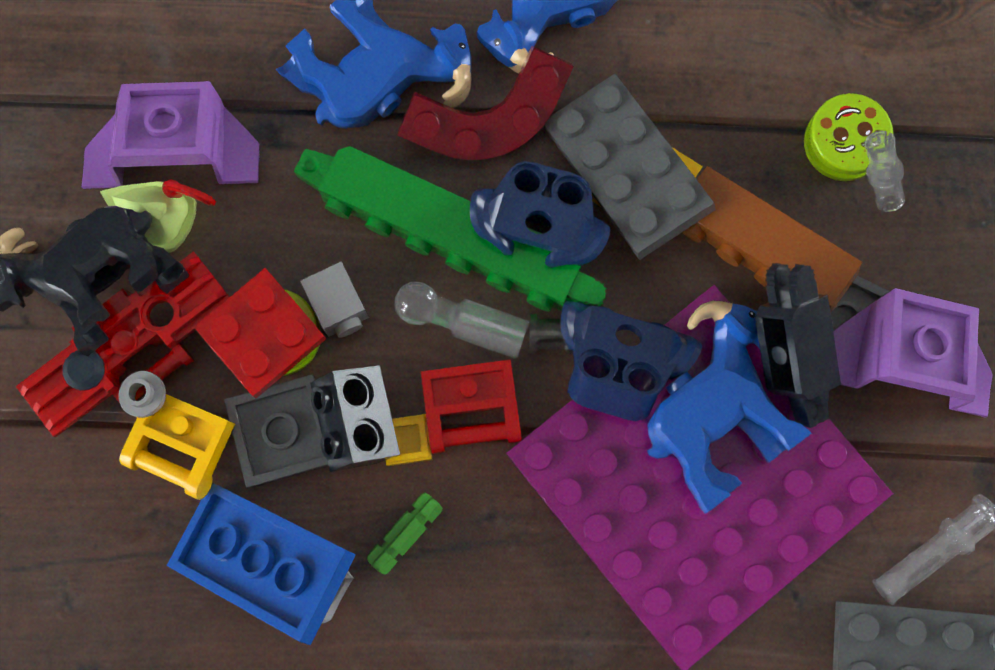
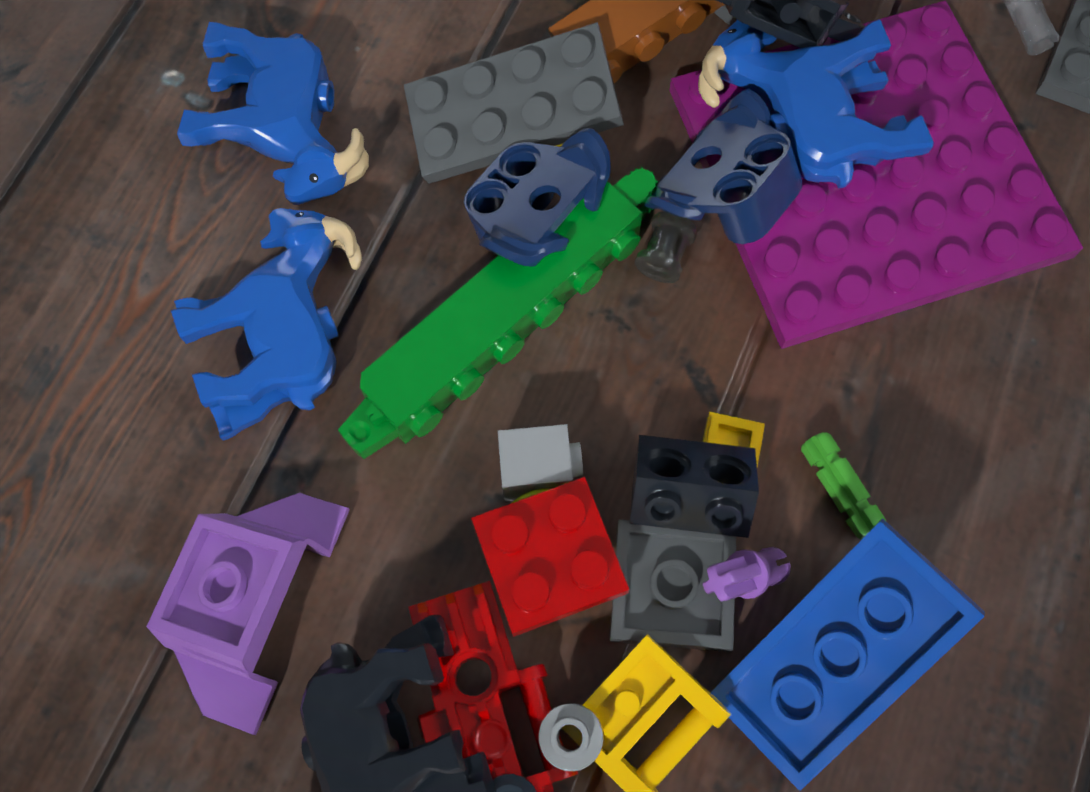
camera: 65 degrees left, 10 degrees down
(170, 206) = (326, 619): yellowish green piece -> none
(298, 477) = (746, 574): none -> medium lavender axle
(467, 391) = (700, 353): red plate -> none
(468, 320) = (617, 327): clear piece -> none
(494, 130) = (409, 215): dark red plate -> none

